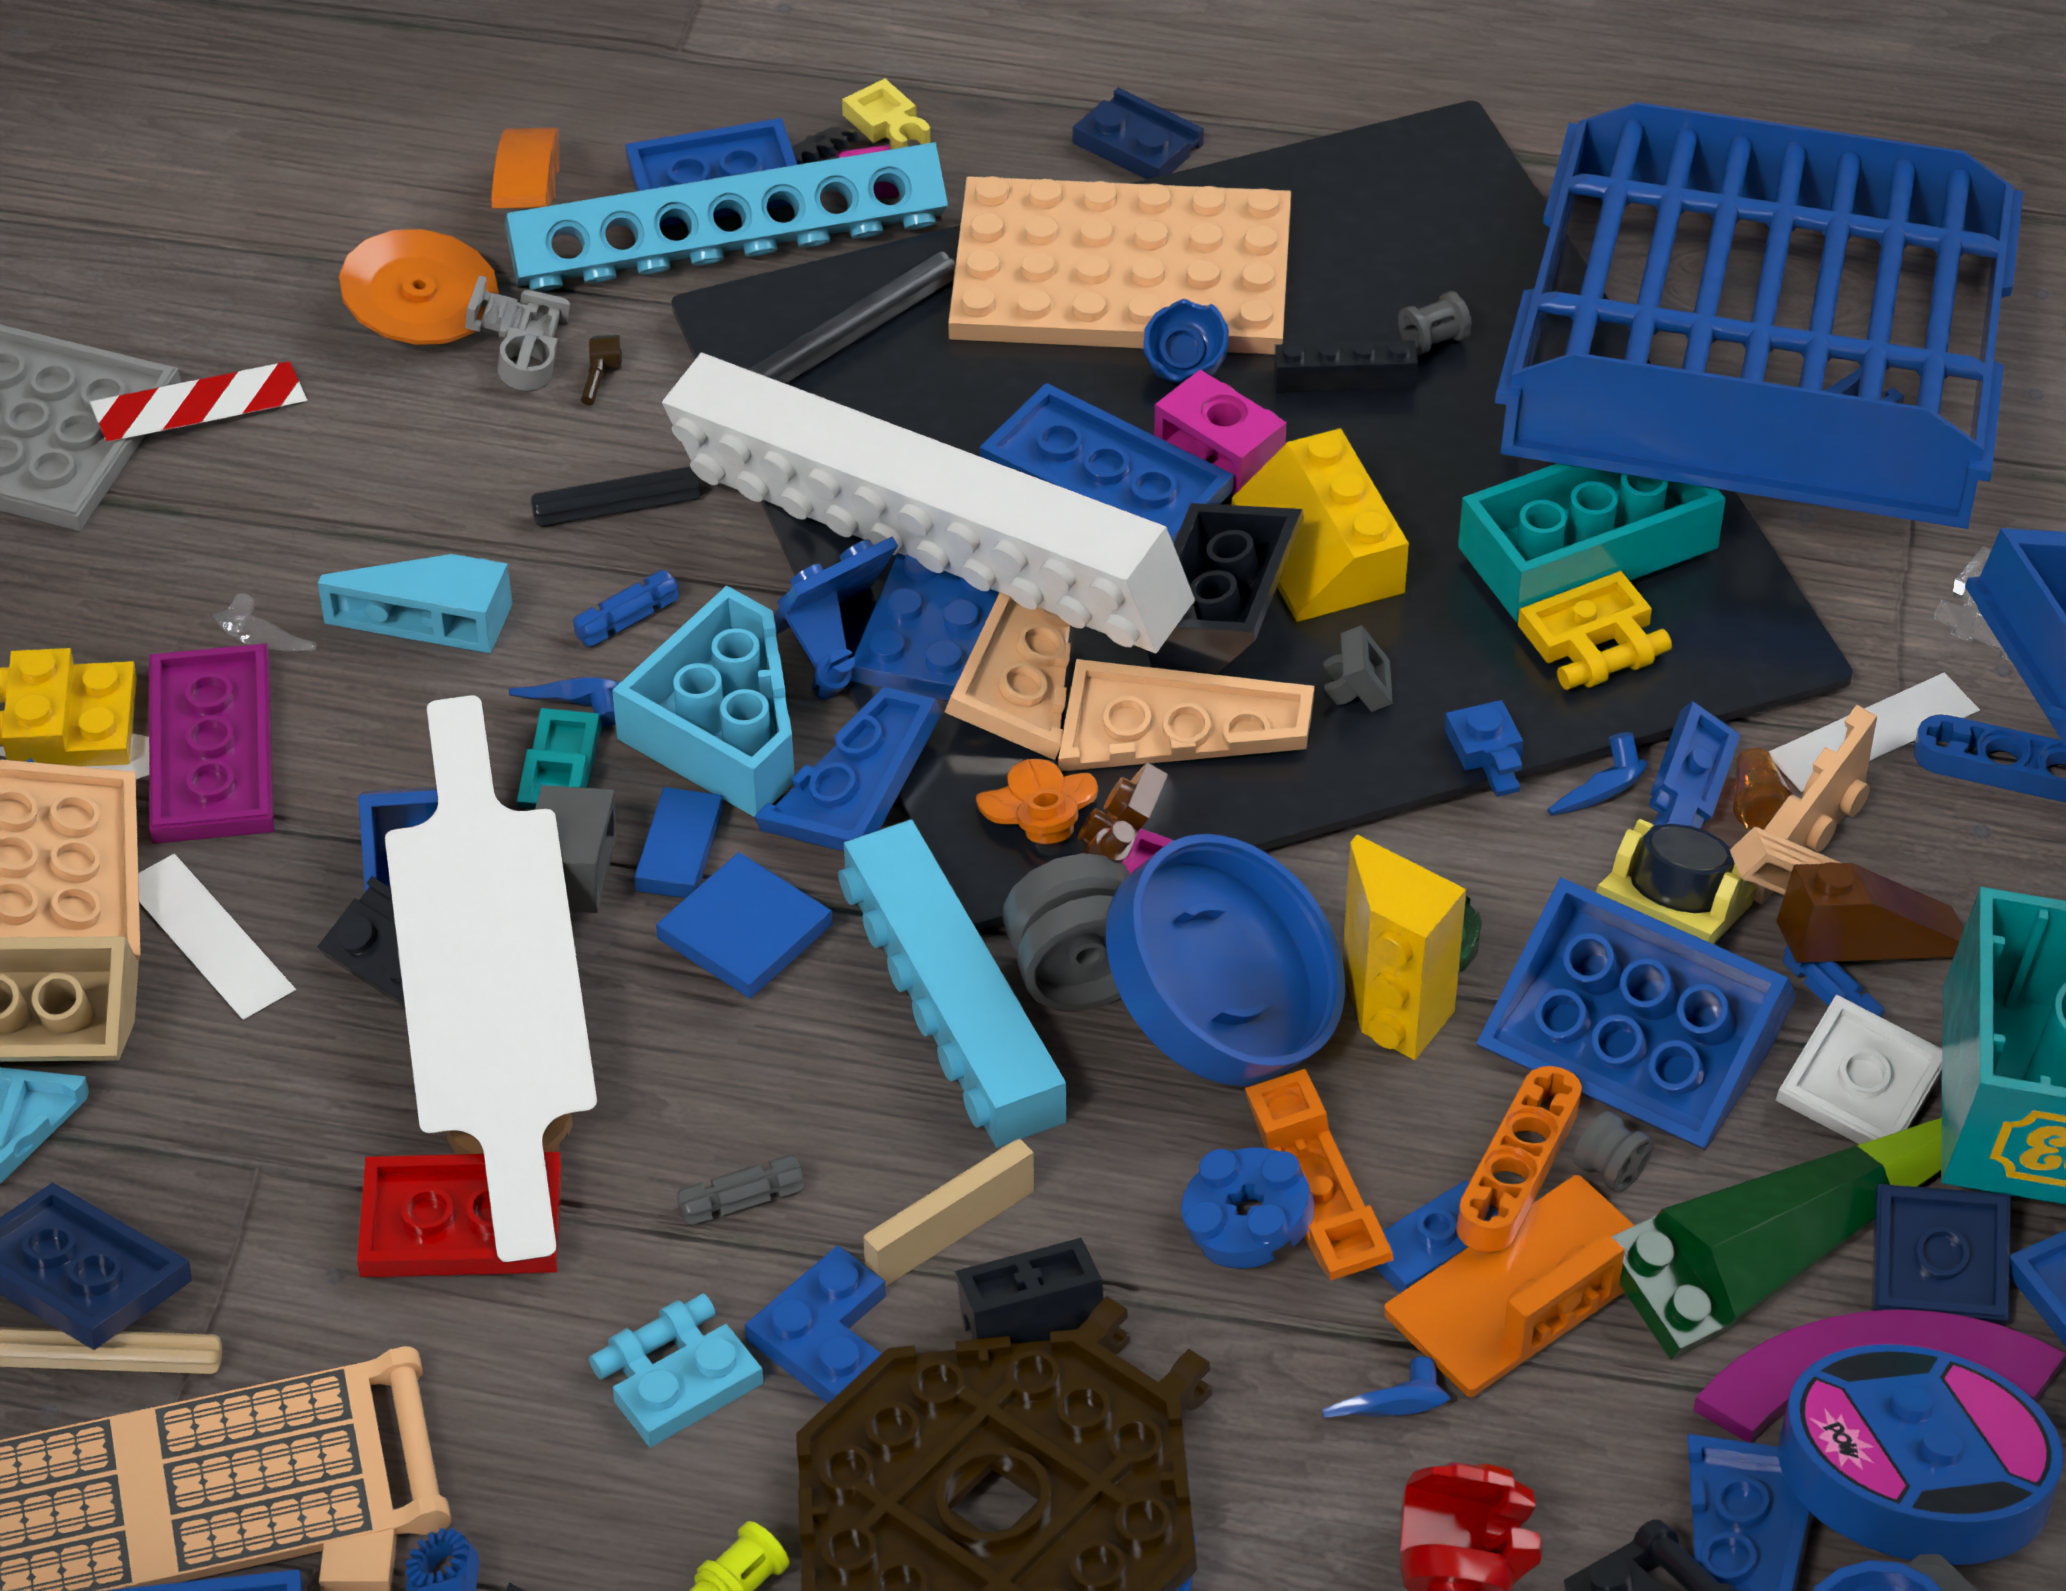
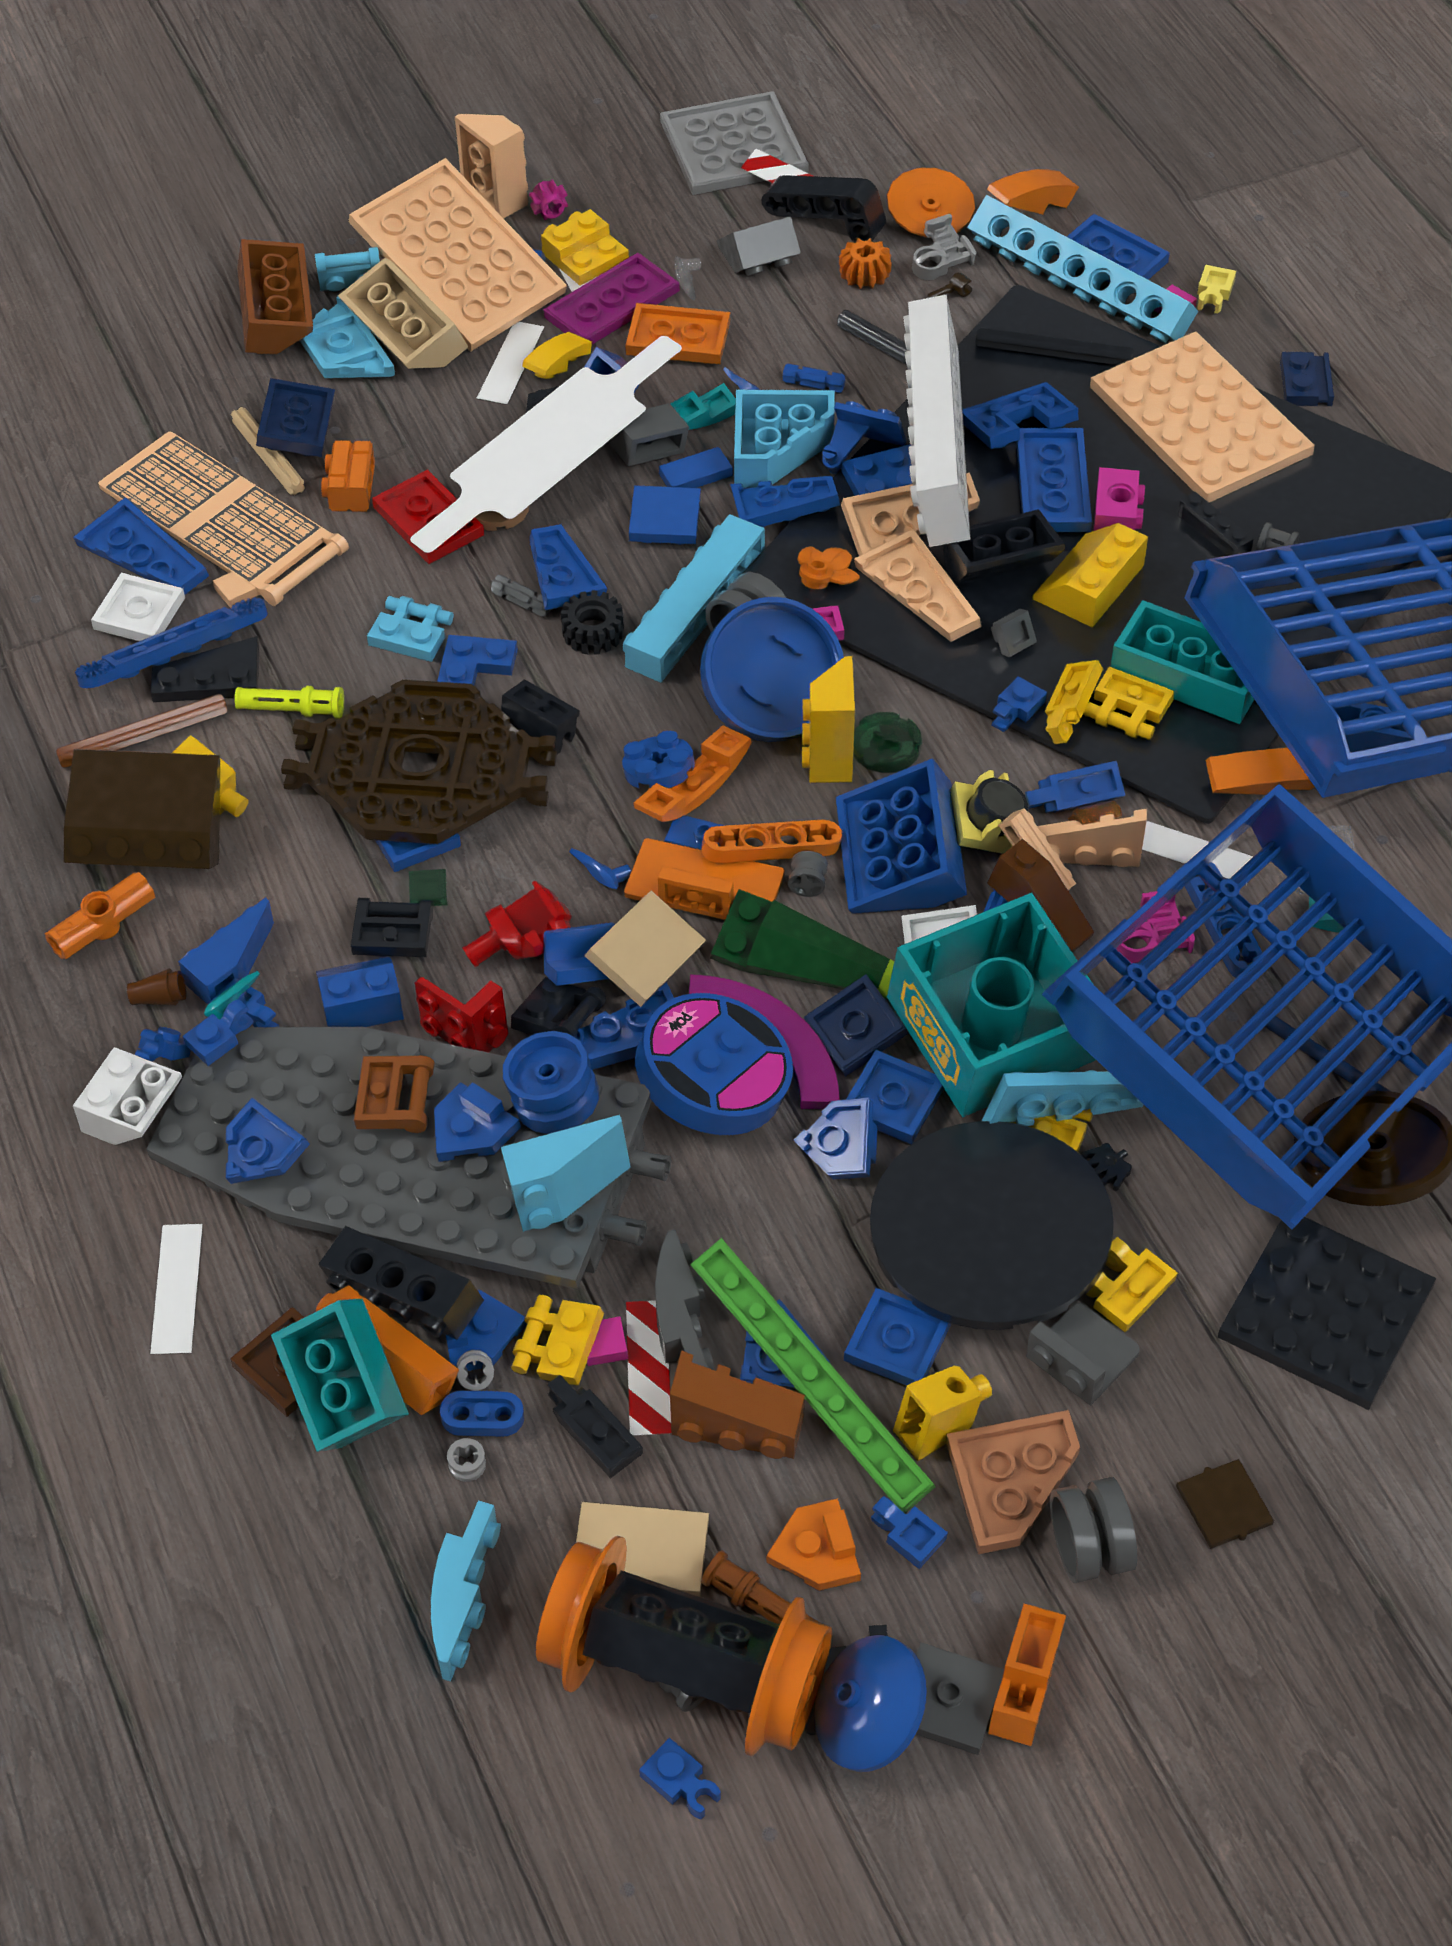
camera: 55 degrees right, 5 degrees up
(272, 866) = (555, 353): none -> yellow slope
(272, 1266) = (349, 476): none -> orange brick
(295, 386) = (828, 198): none -> black beam
(297, 511) = (760, 245): none -> slope
(372, 703) = (697, 331): none -> orange plate
(427, 599) = (751, 314): medium azure slope -> none
(461, 422) = (865, 263): none -> orange gear
(742, 1105) = (561, 567): none -> blue wing
(824, 144) = (1171, 277): black piece -> none
(886, 1160) = (591, 608): none -> black tyre
(950, 1212) = (563, 665): tan tile -> none
(951, 394) = (996, 419): none -> blue plate
(1125, 813) = (820, 591): reddish brown plate -> none
(1185, 340) = (1161, 460): blue hair -> none
(1537, 680) = (1071, 698): none -> yellow hinge
(1585, 1507) = (566, 954): none -> blue panel
(1606, 782) = (1047, 763): blue bar -> none
(1629, 1417) = (645, 948): none -> tan tile
(1827, 569) = (1256, 772): none -> orange slope
(2009, 836) = (1162, 924): none -> dark pink piece

